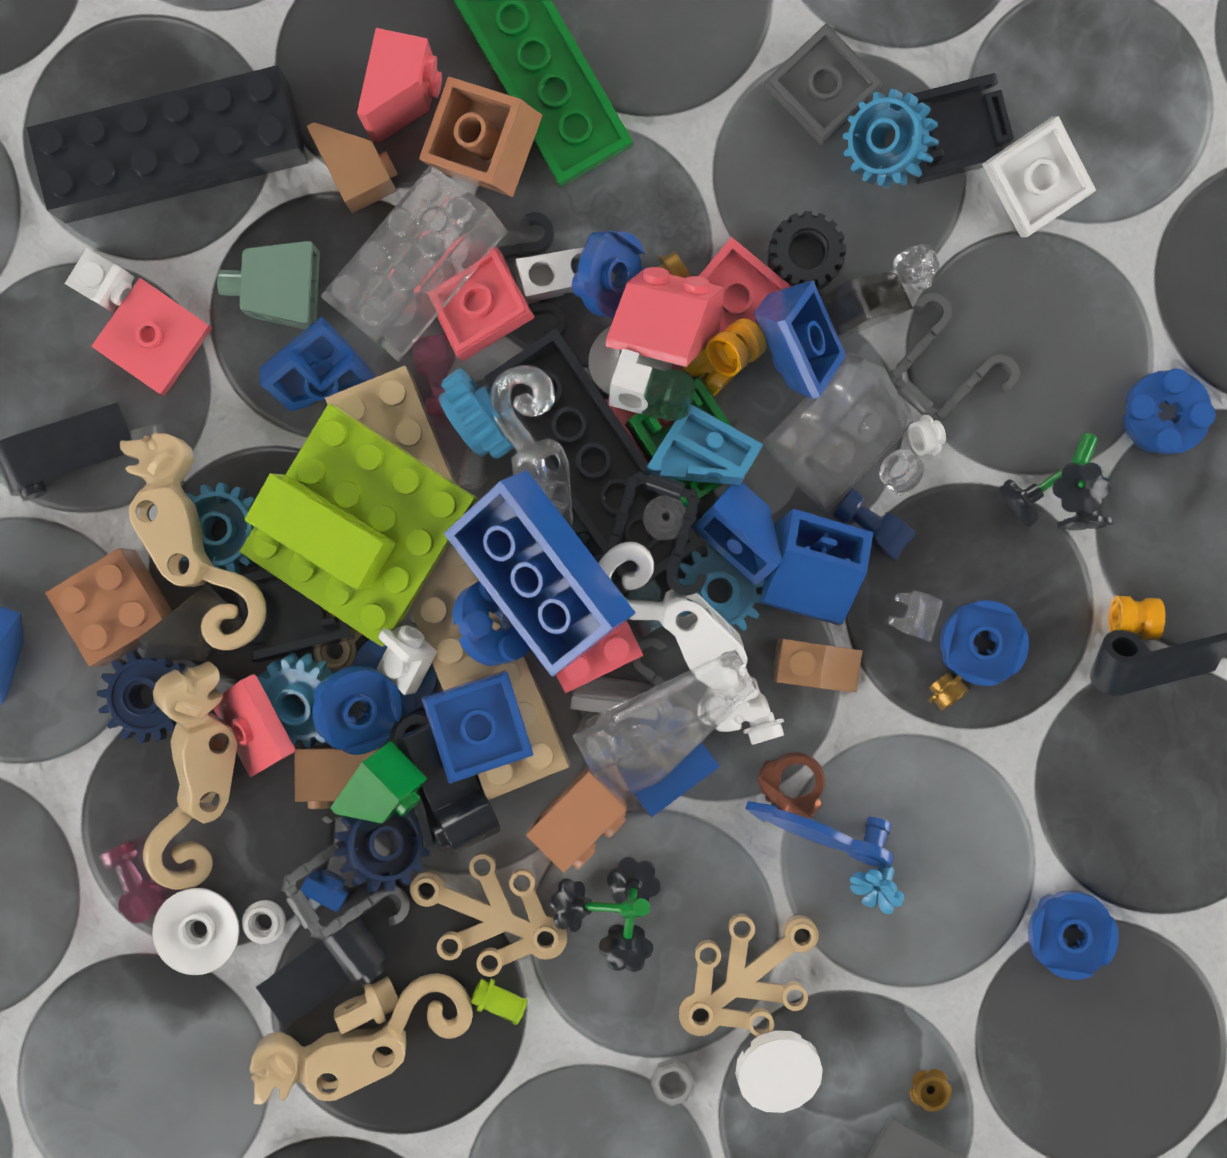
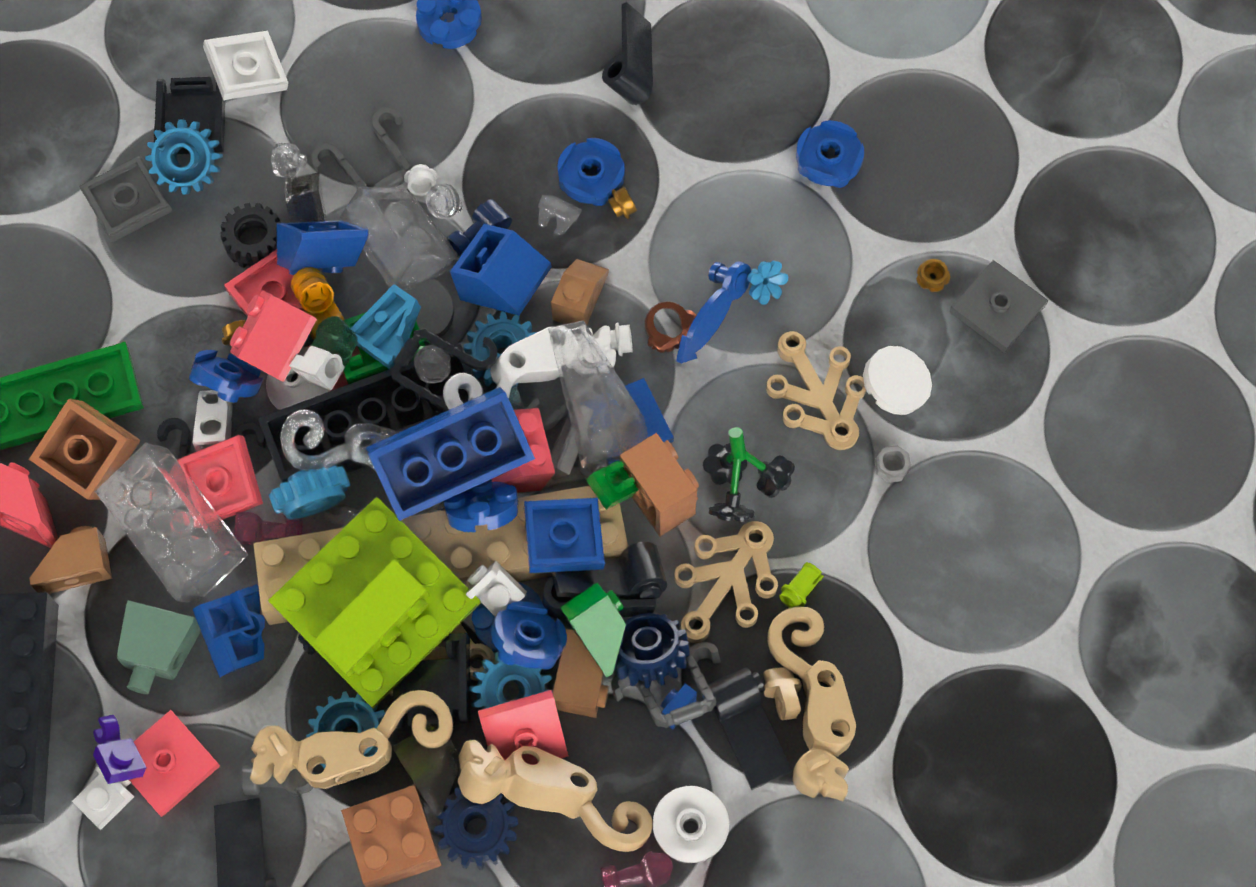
camera: 80 degrees left, 20 degrees down
(133, 285) = (116, 757): none -> dark purple plate
(254, 930) = (695, 757): white plate -> none
(557, 767) = (612, 484): none -> green tile
(742, 532) = (460, 313): blue slope -> none
(1076, 484) = (483, 73): black plant -> none
(1139, 617) = (596, 56): light orange wheel -> none

